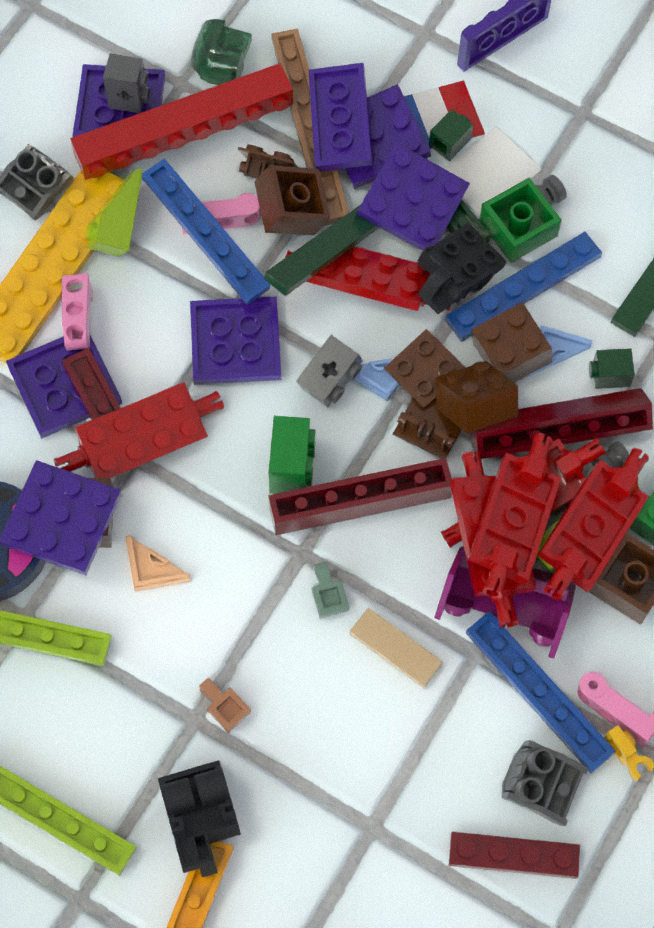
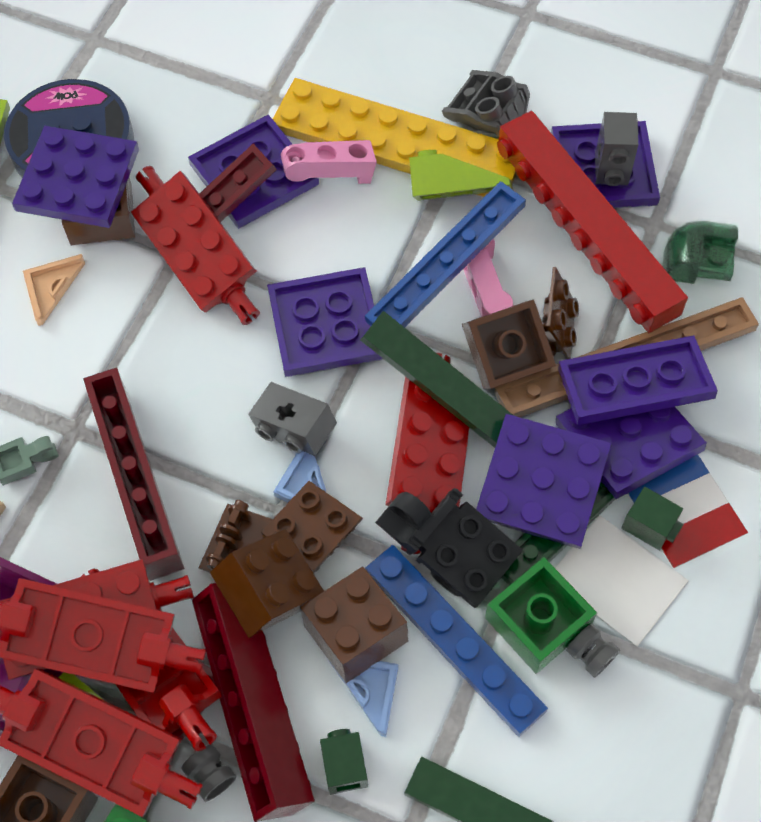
camera: 85 degrees right, 5 degrees down
(291, 454) = (173, 387): green brick -> none

